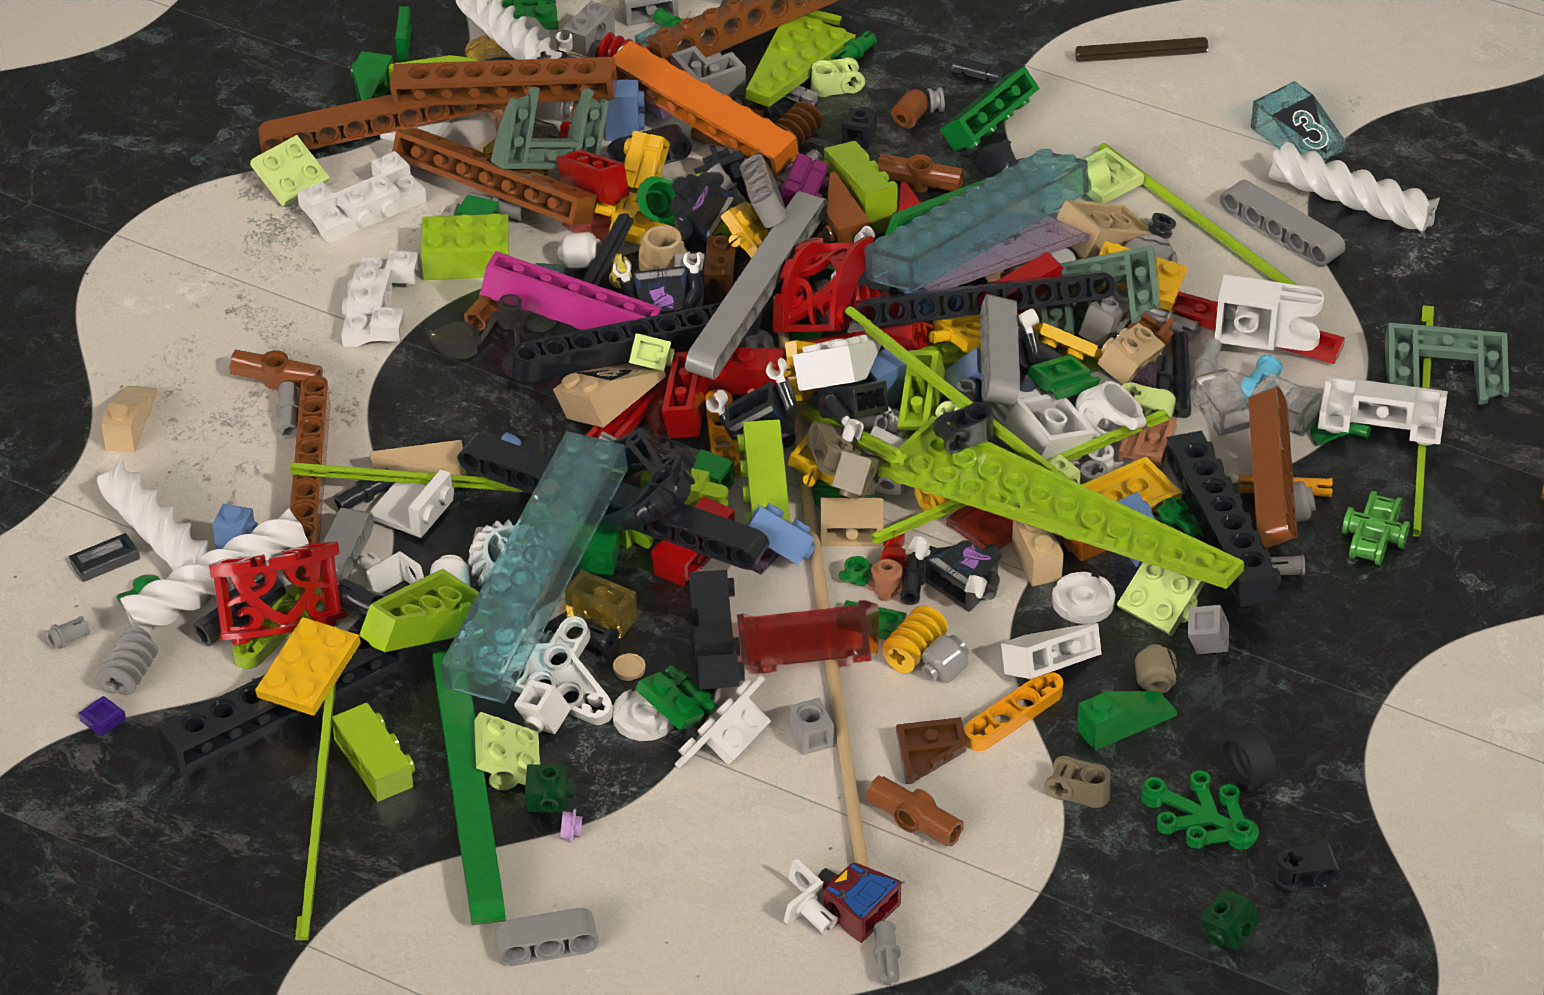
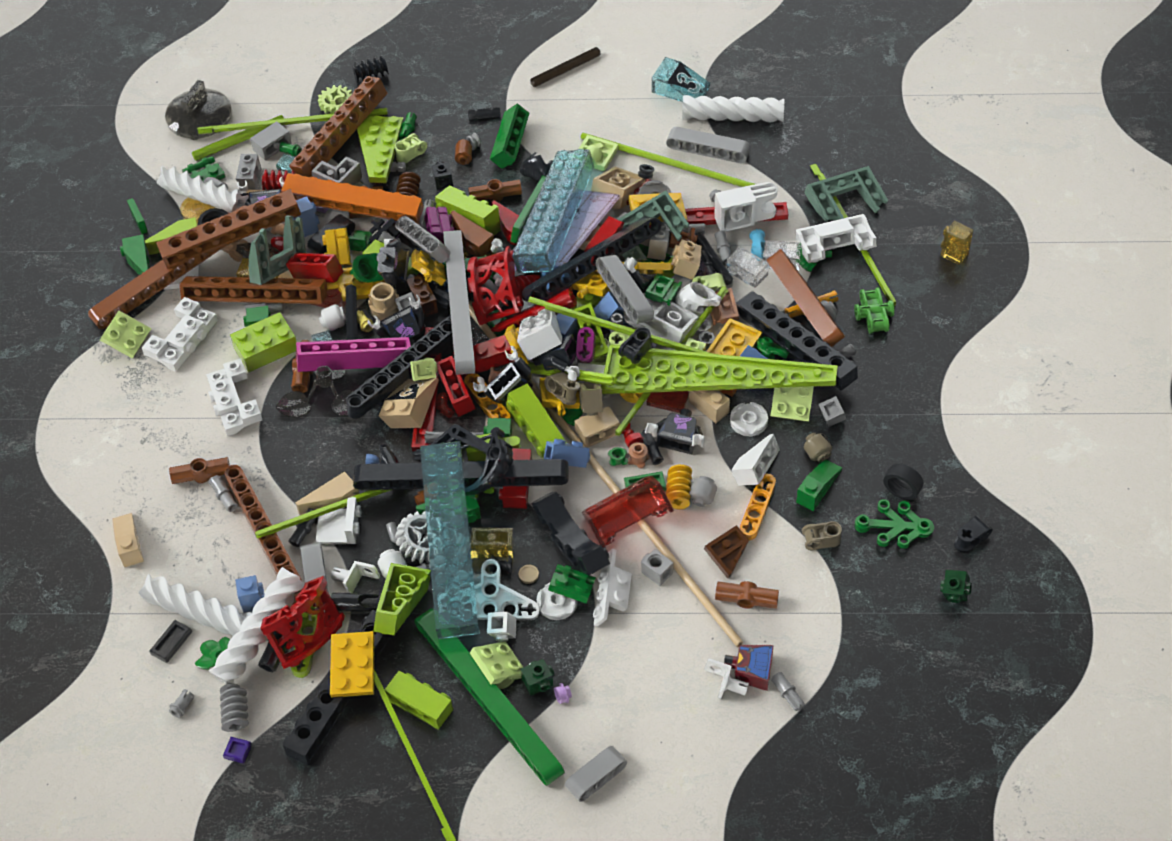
camera: 25 degrees left, 10 degrees up
(681, 168) = (359, 240): none -> green bracket
(897, 404) = (590, 345): none -> magenta beam

